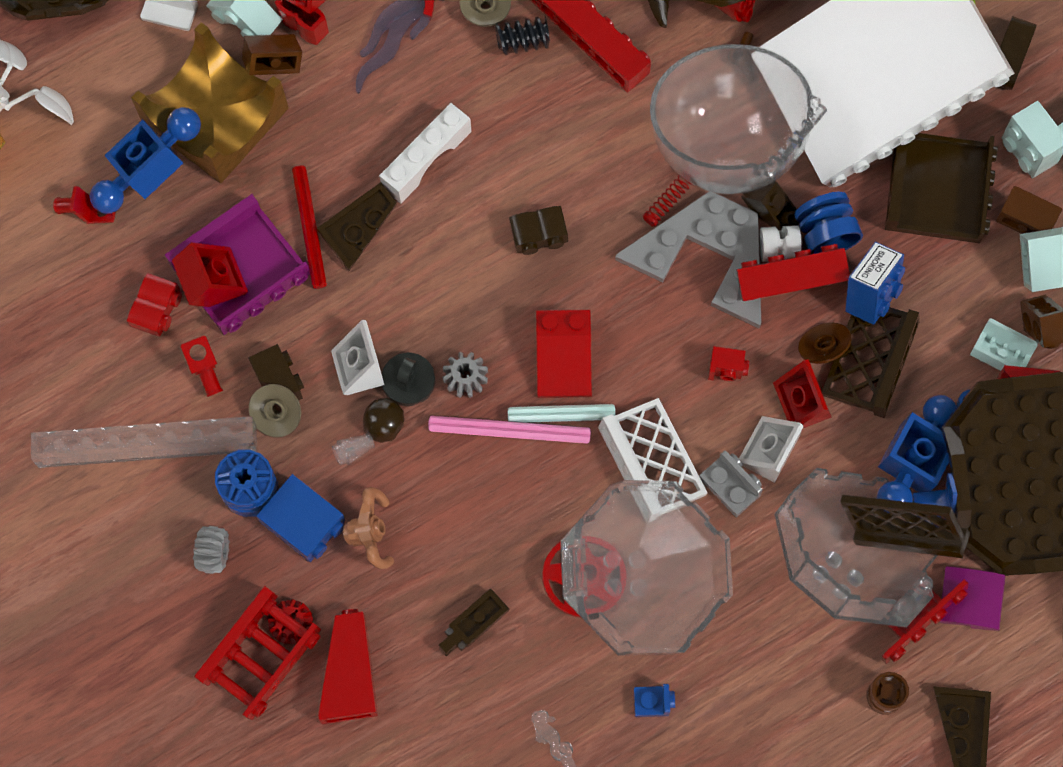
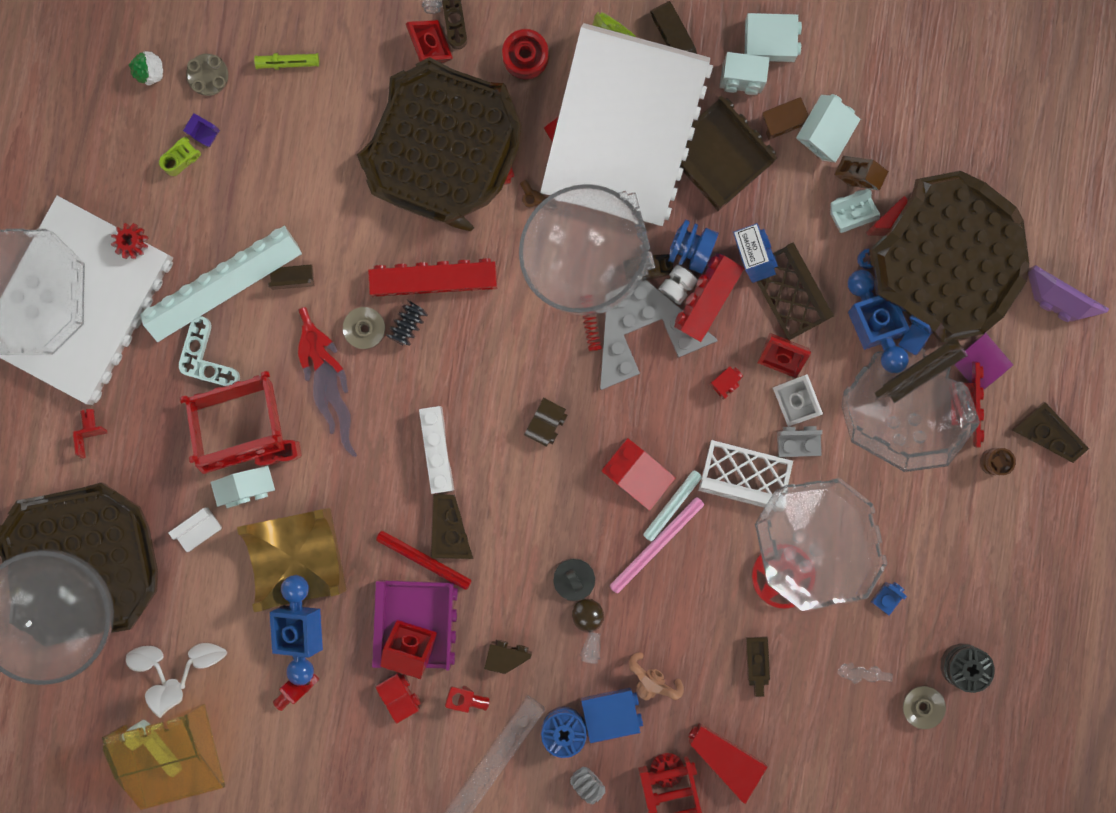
camera: 50 degrees left, 15 degrees up
(265, 415) = (529, 677): dark tan dish -> none
(271, 54) = (289, 493): reddish brown brick -> none
(357, 361) = (540, 603): white slope -> none
(454, 371) = (599, 551): light grey gear -> none
(825, 343) = (754, 313): reddish brown dish -> none

